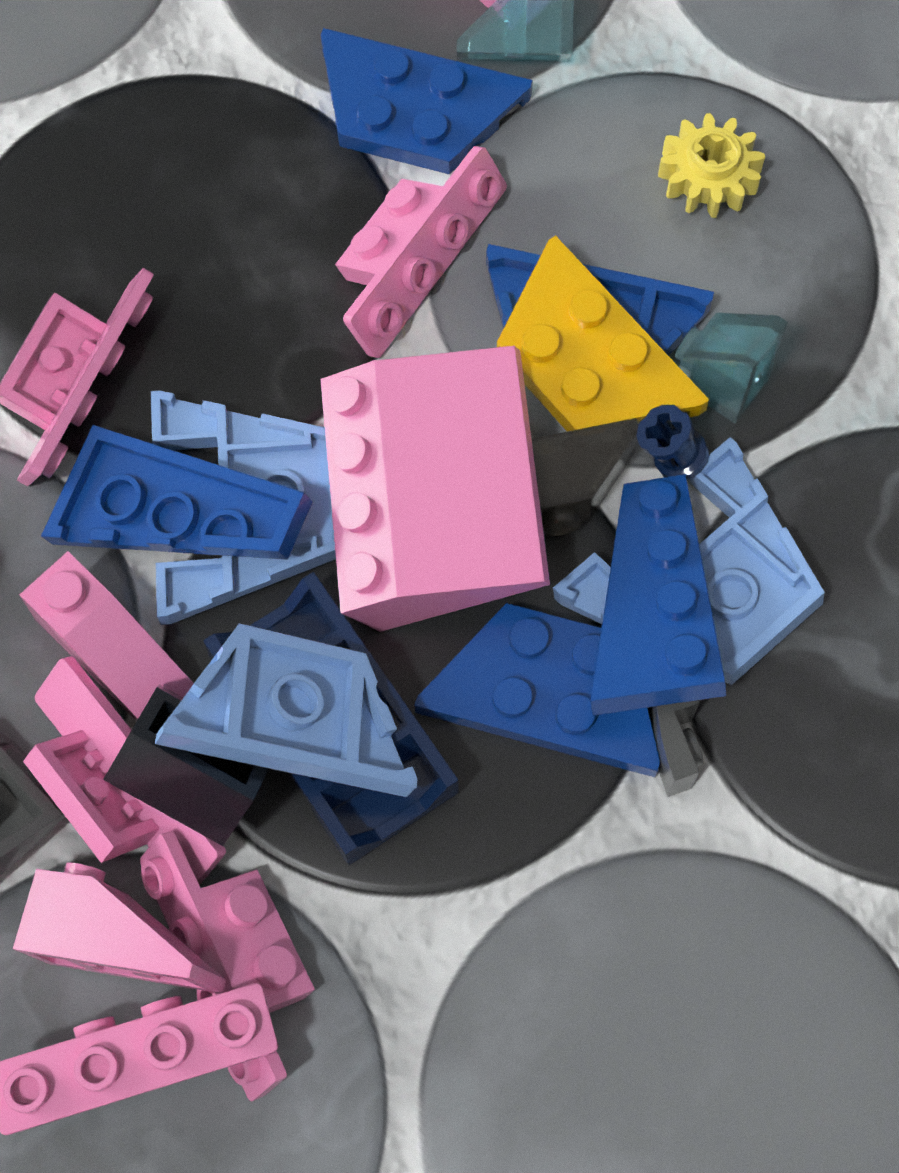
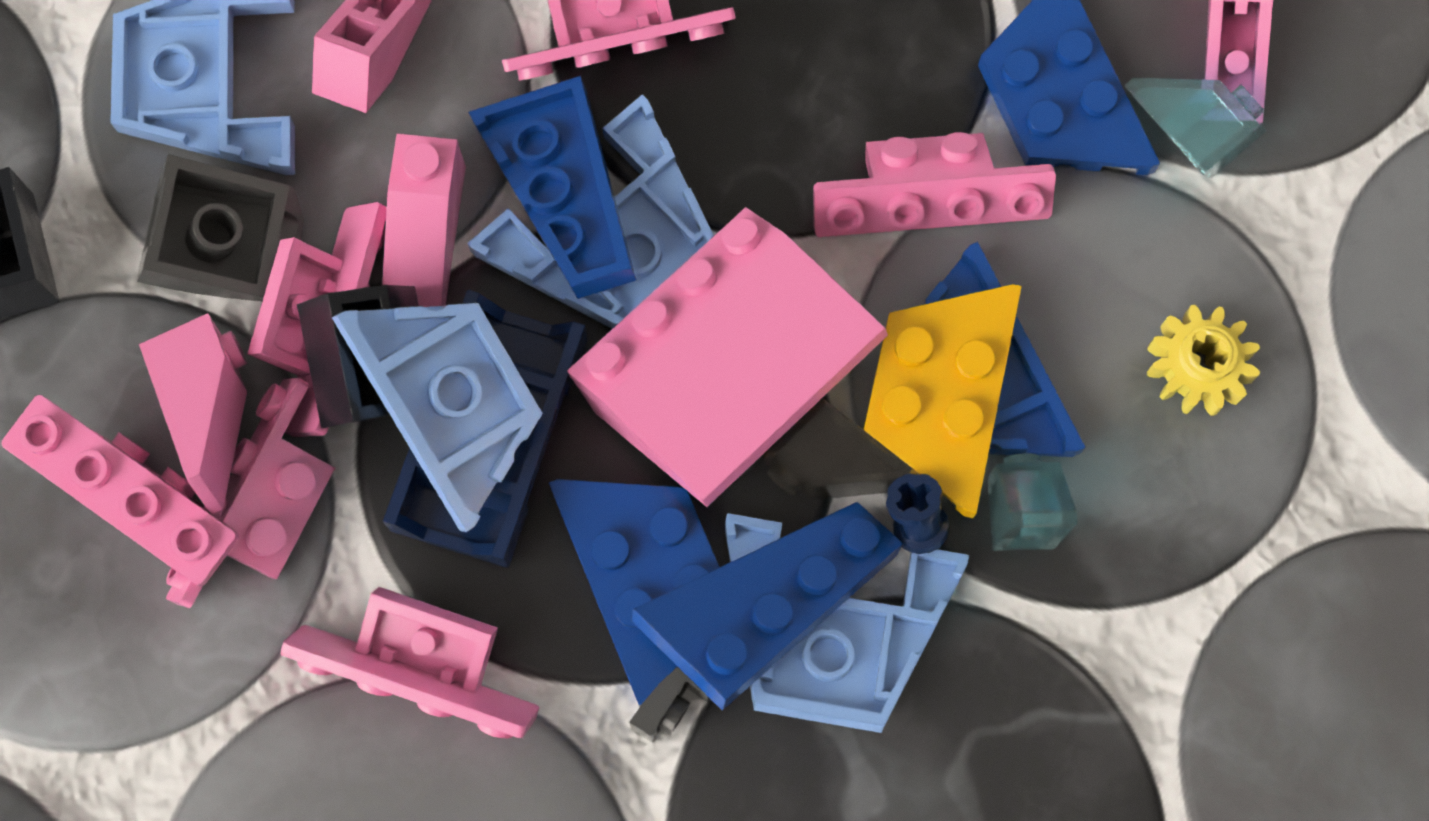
camera: 50 degrees right, 5 degrees up
(479, 915) = (419, 656): none -> bright pink bracket

